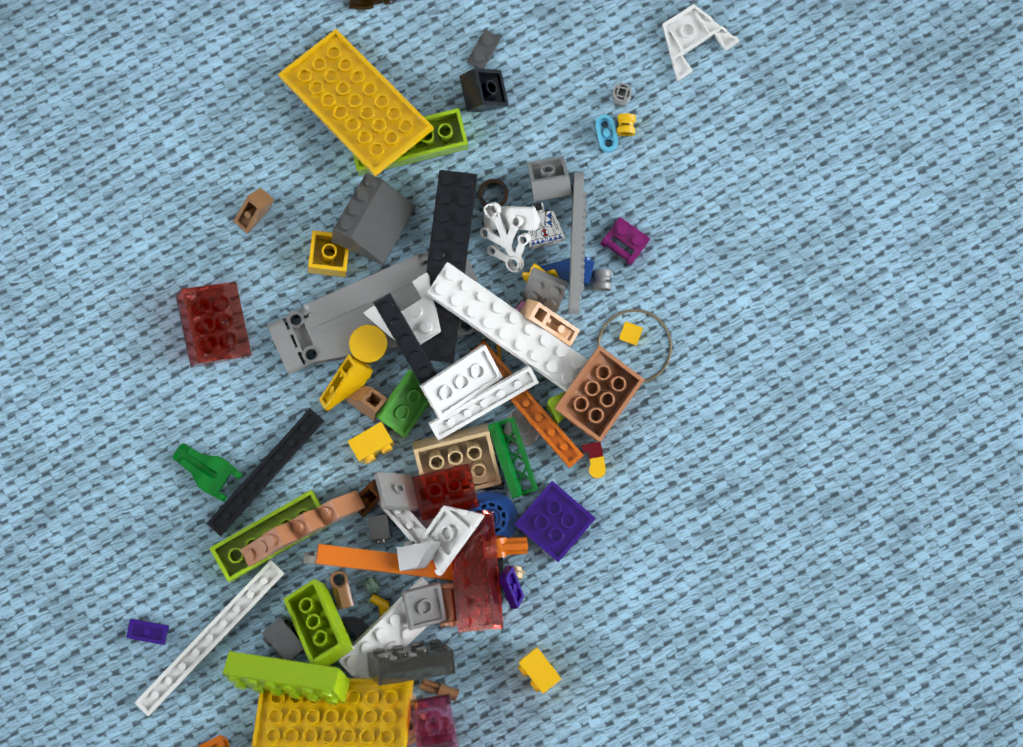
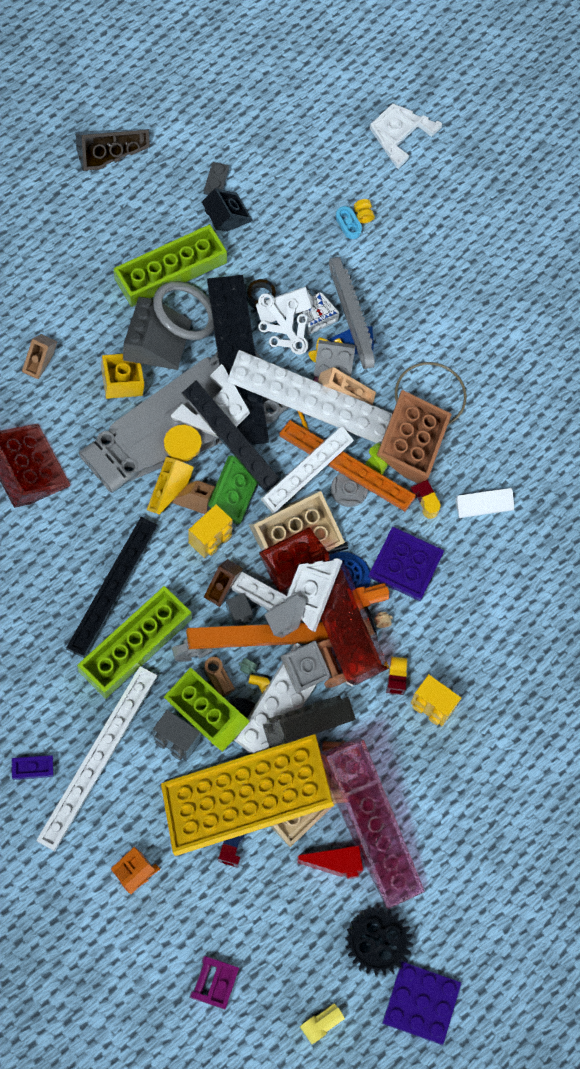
camera: 25 degrees left, 15 degrees down
(207, 470) = (55, 598): green animal -> none
(286, 677) = (189, 766): lime brick -> none
(302, 526) = (152, 625): nougat arch -> none
(355, 102) = (113, 239): yellow plate -> none
(381, 201) = (168, 324): none -> light grey wedge
(396, 491) = (247, 569): light grey plate -> none
(461, 381) = (281, 453): white plate -> none
(507, 462) = (341, 515): green fence -> none
(511, 587) = (386, 634): dark purple plate -> none
(512, 631) = (397, 676): none -> leg
(549, 178) = (309, 270): light grey slope -> none
(602, 280) = (383, 343): light grey wheel -> none
(621, 98) = (352, 187): light grey wheel -> none
(627, 235) = (394, 302): magenta plate -> none
(631, 333) = (424, 383): yellow tile -> none
(652, 478) = (485, 503): none -> white slope

